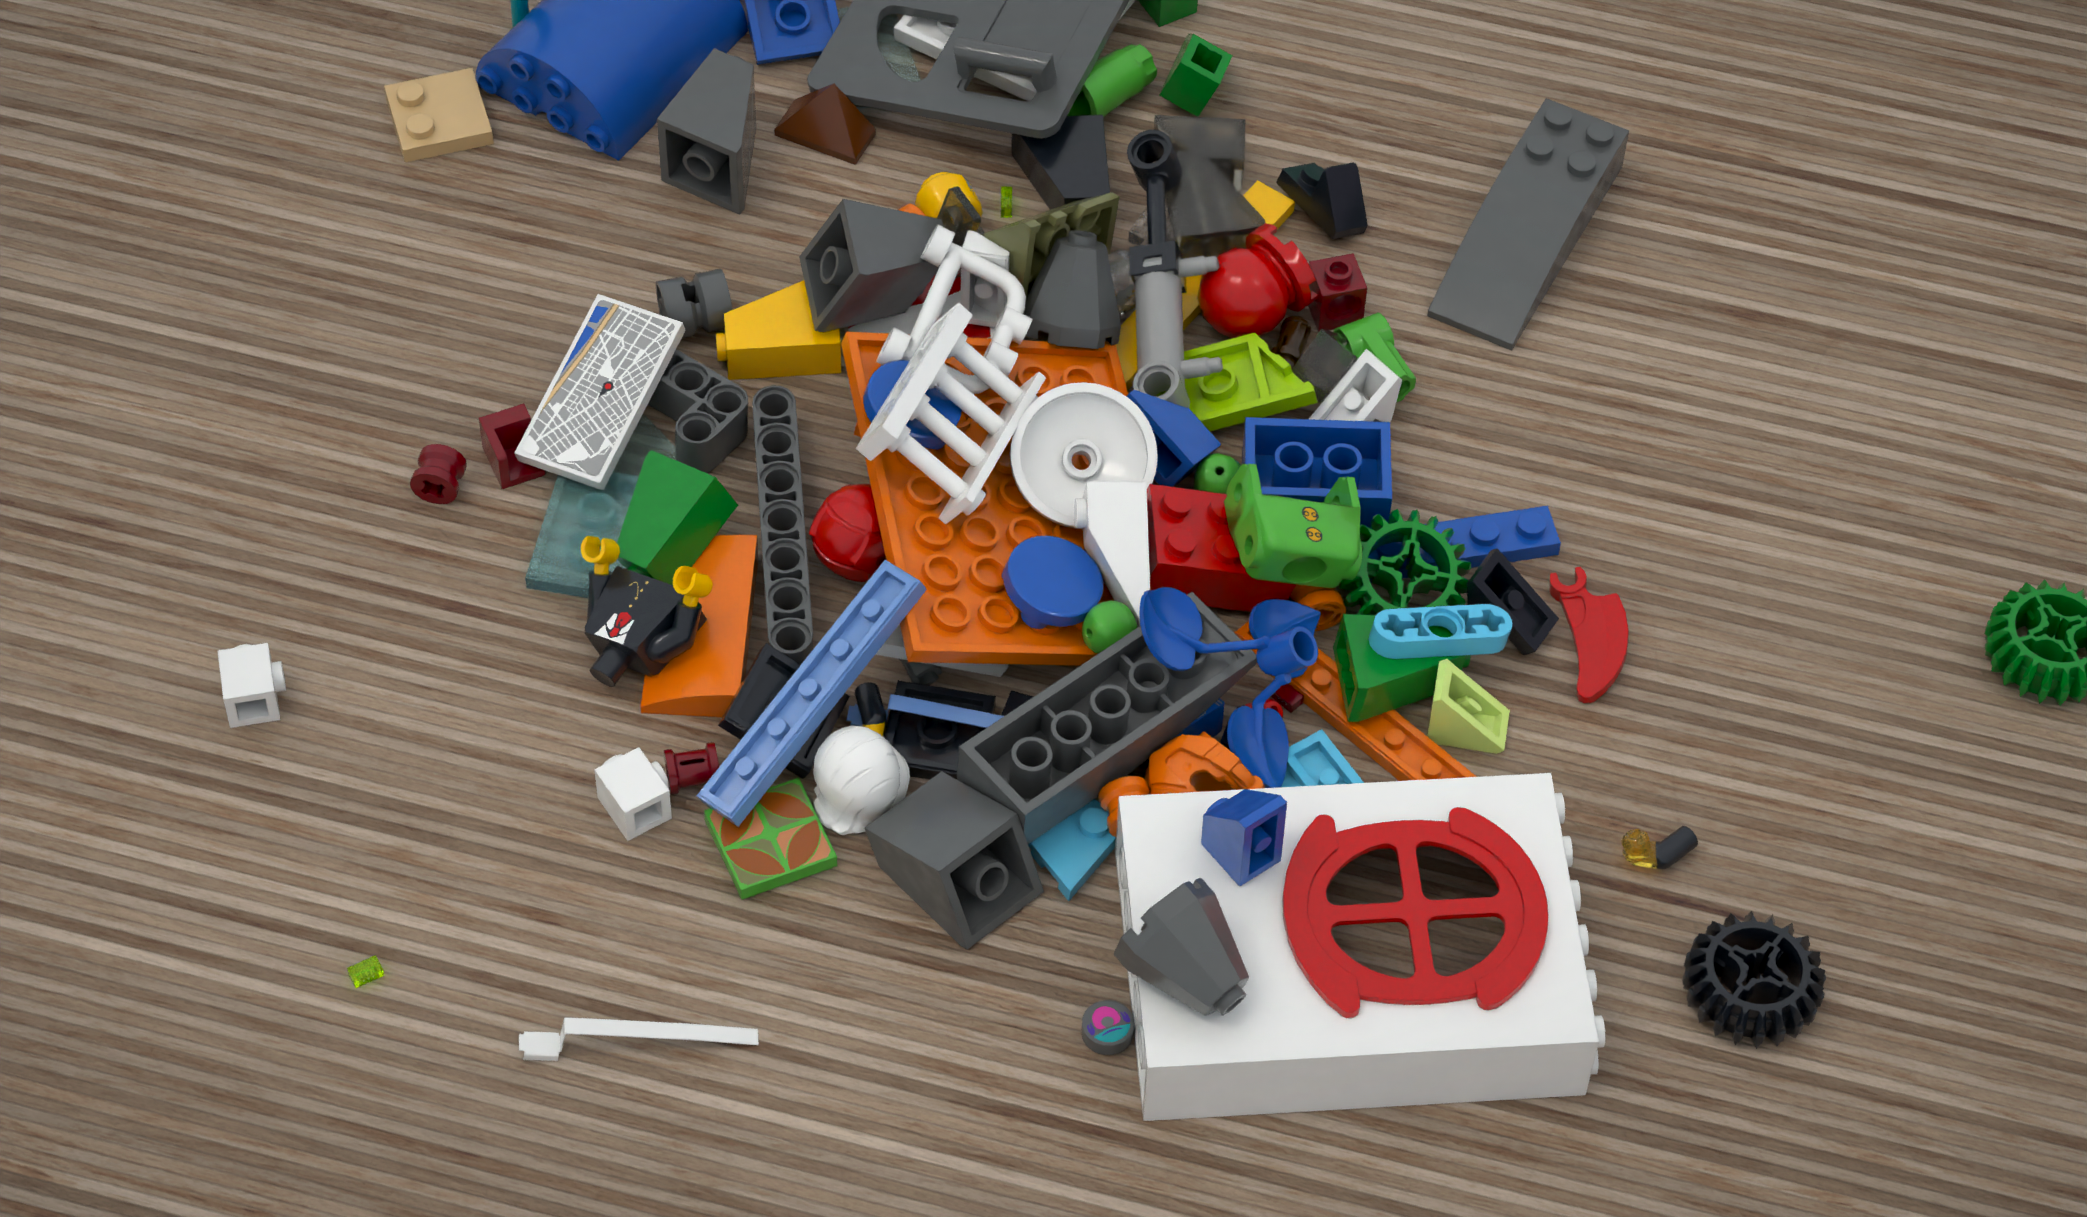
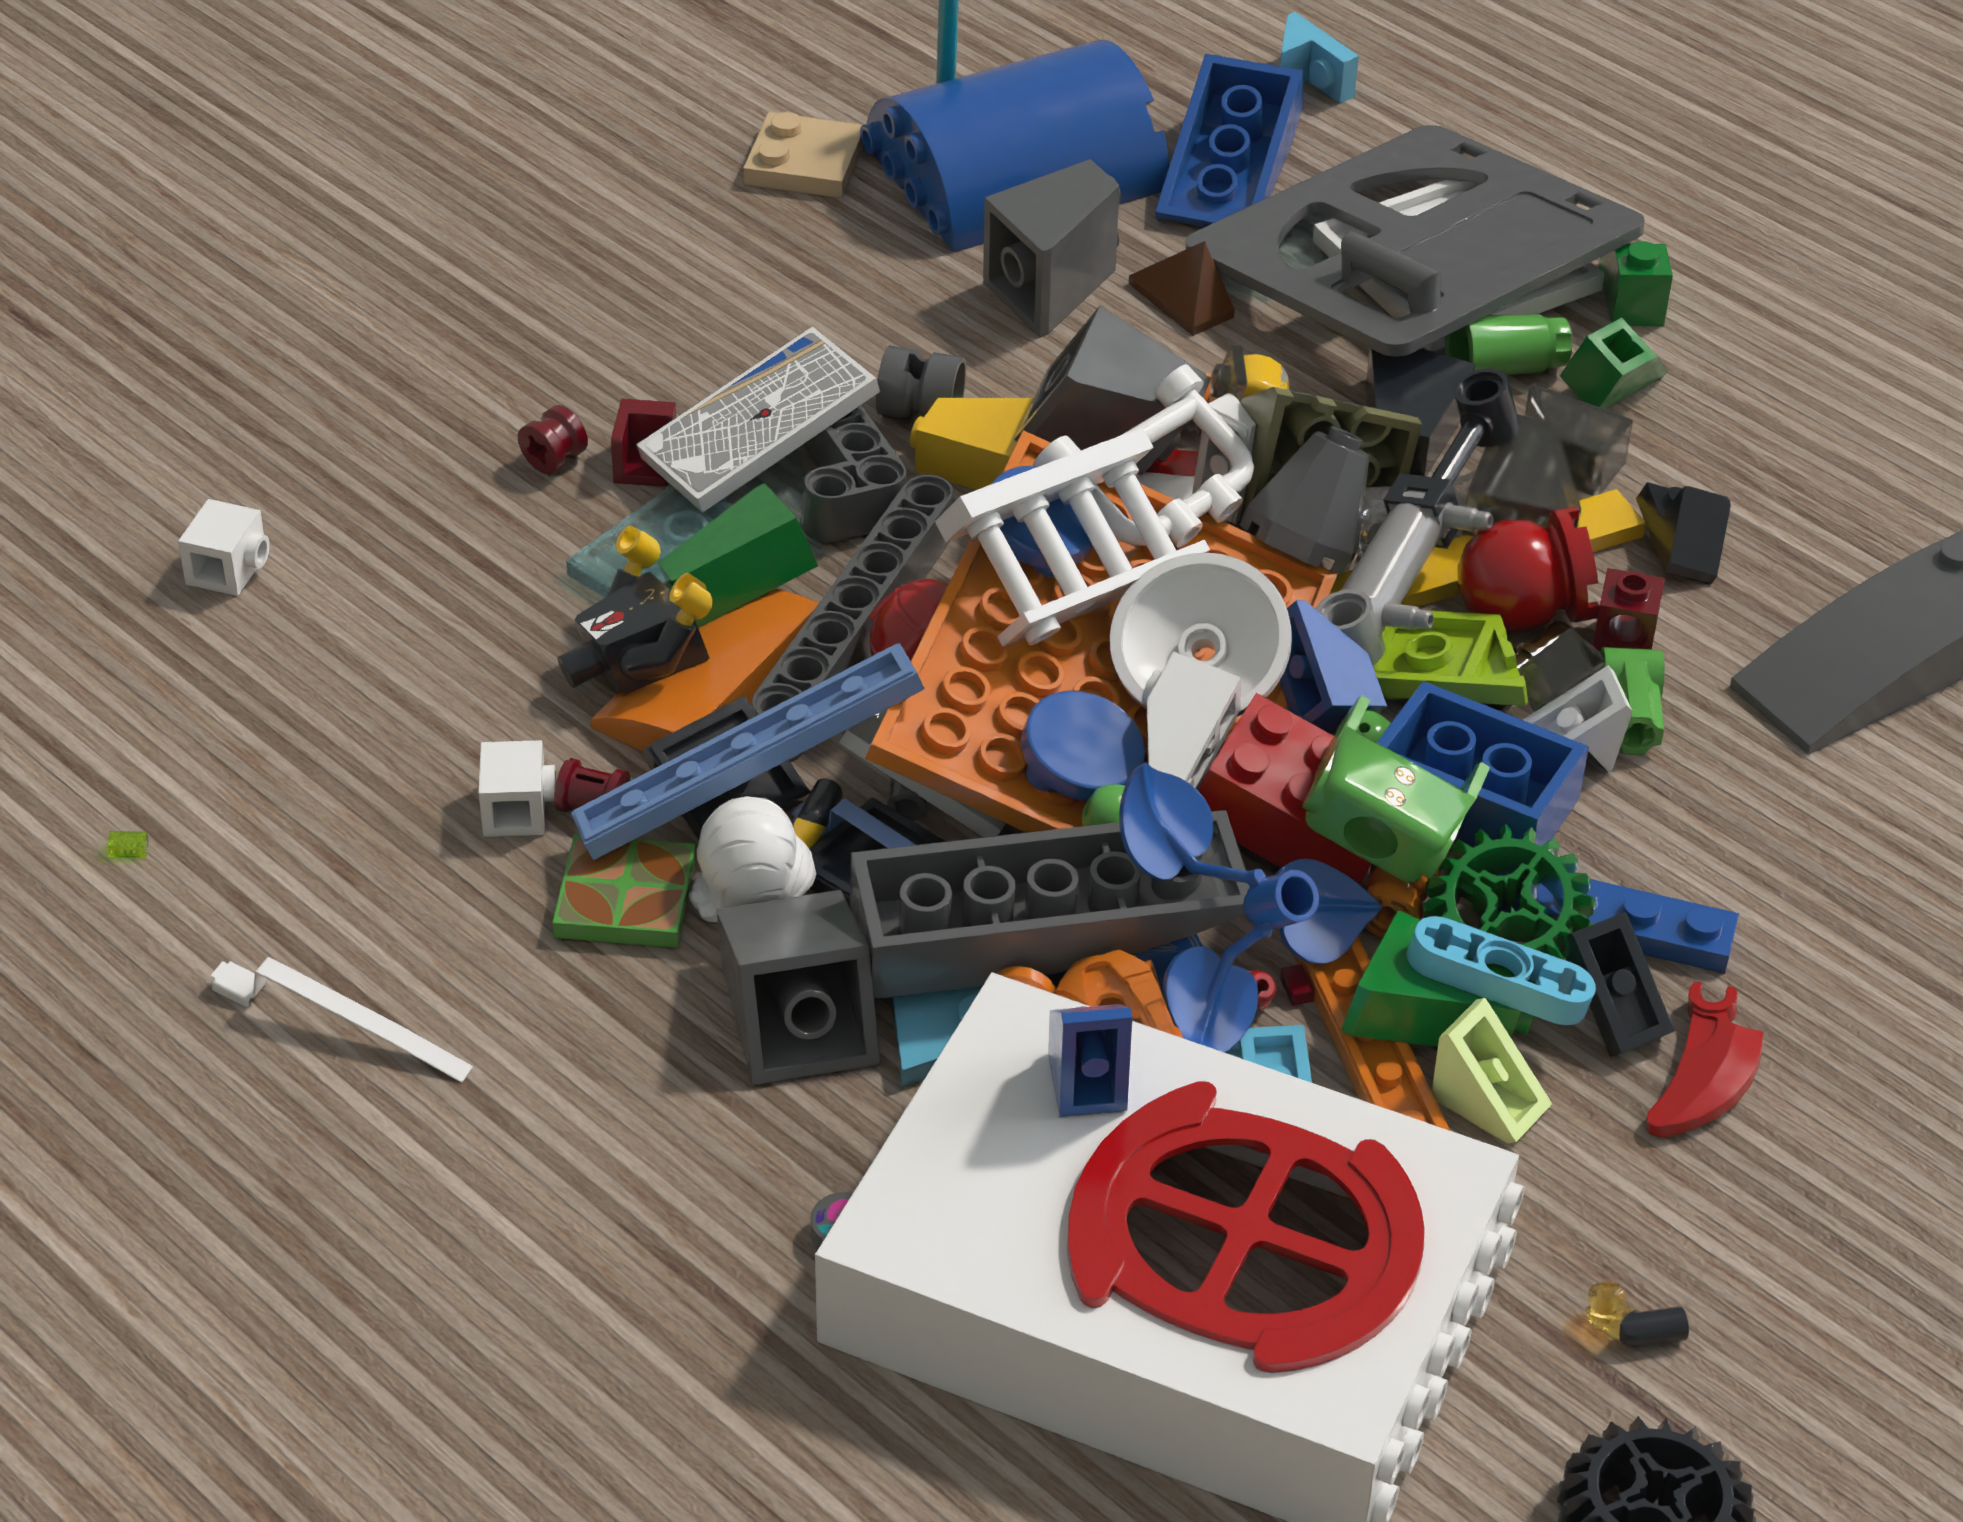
camera: 30 degrees right, 10 degrees down
(1187, 950) = (929, 1135): dark grey cone -> none

